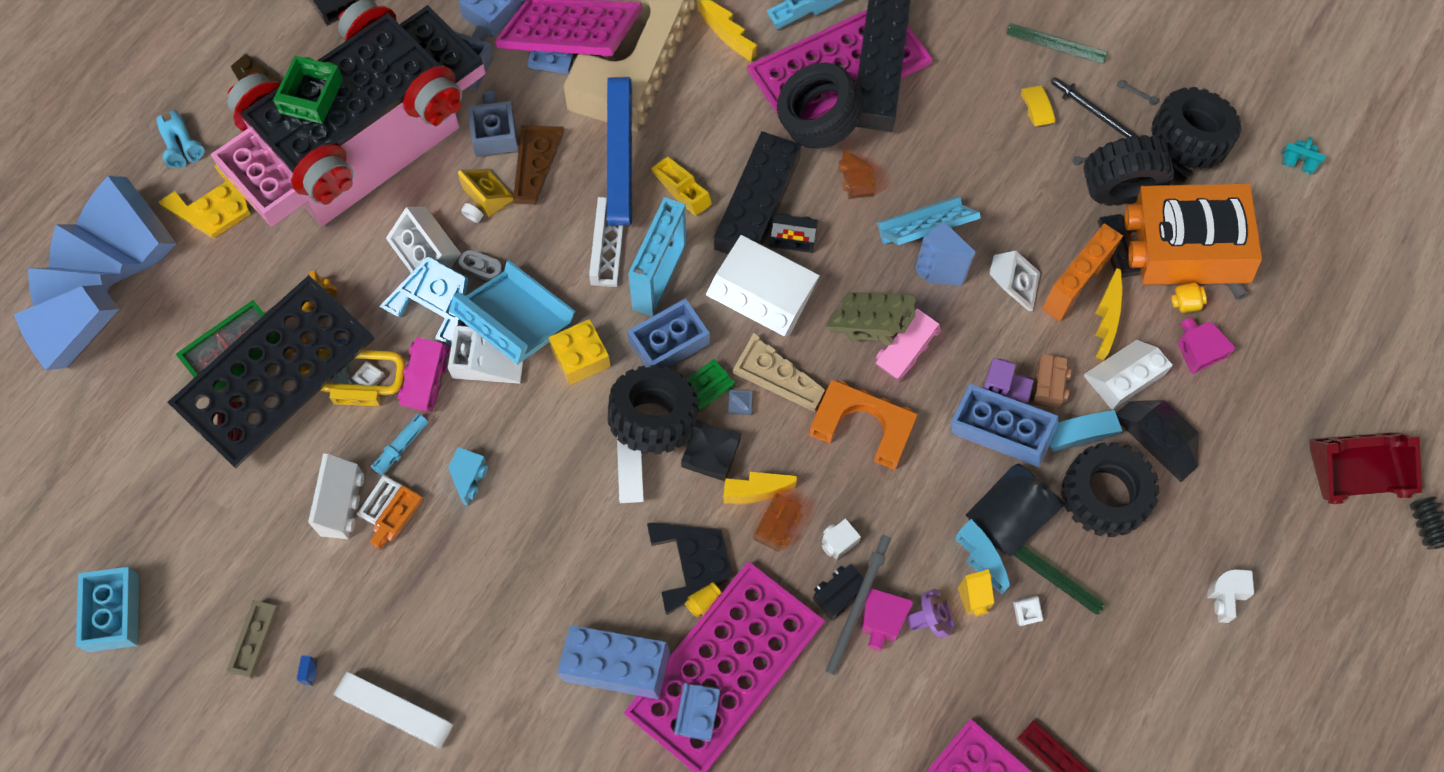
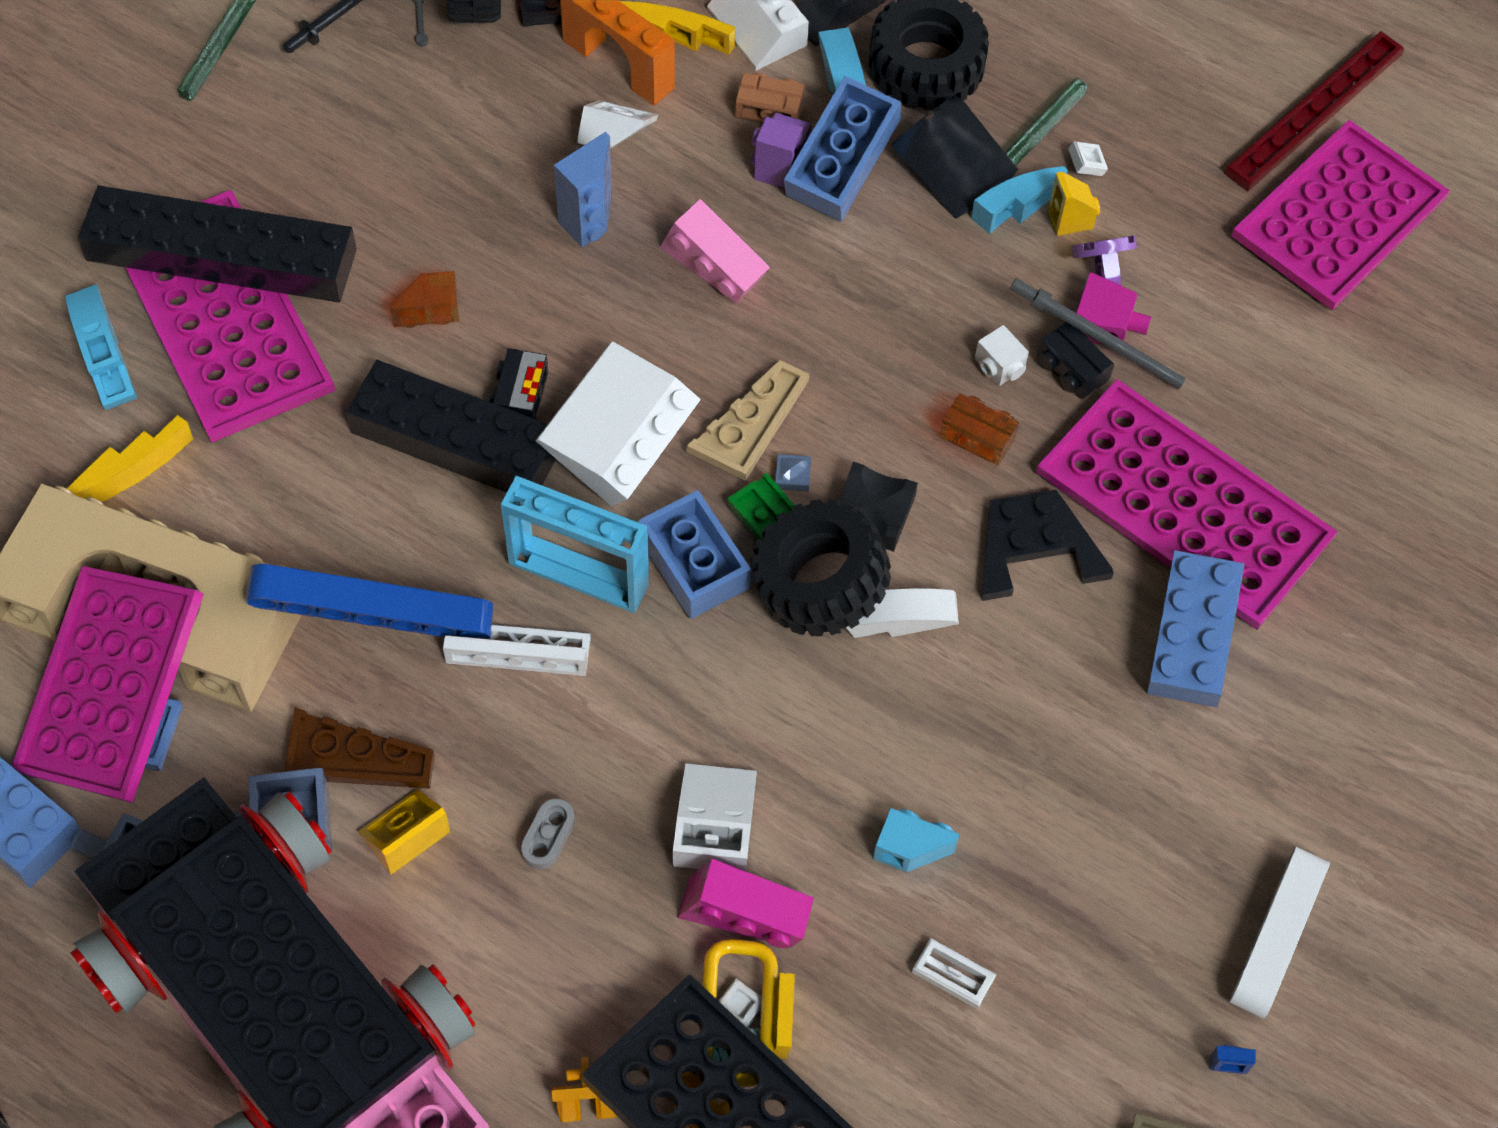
camera: 90 degrees left, 5 degrees down
(302, 108) = (311, 1038): green window -> none
(336, 497) = (960, 1030): white slope -> none
(395, 516) = (982, 944): orange hinge -> none
(396, 448) = (861, 945): medium azure pin -> none
(420, 236) = (505, 925): white slope -> none
(433, 287) = (597, 890): wing -> none
(471, 213) = (447, 849): white tile -> none
(513, 313) = (646, 770): medium azure panel -> none
(579, 352) = (712, 681): yellow brick -> none
(682, 186) = (421, 537): yellow slope -> none
(697, 712) = (1254, 530): medium blue plate -> none
(702, 600) = (1097, 523): yellow cone -> none
(758, 488) = (929, 453): yellow slope -> none
(807, 85) = (279, 298): black tyre -> none
(843, 400) = (829, 281): orange arch -> none
(874, 315) = (678, 282): olive piece -> none
(921, 221) = (510, 219): medium azure fence -> none
(1038, 105) = (332, 69): yellow slope -> none

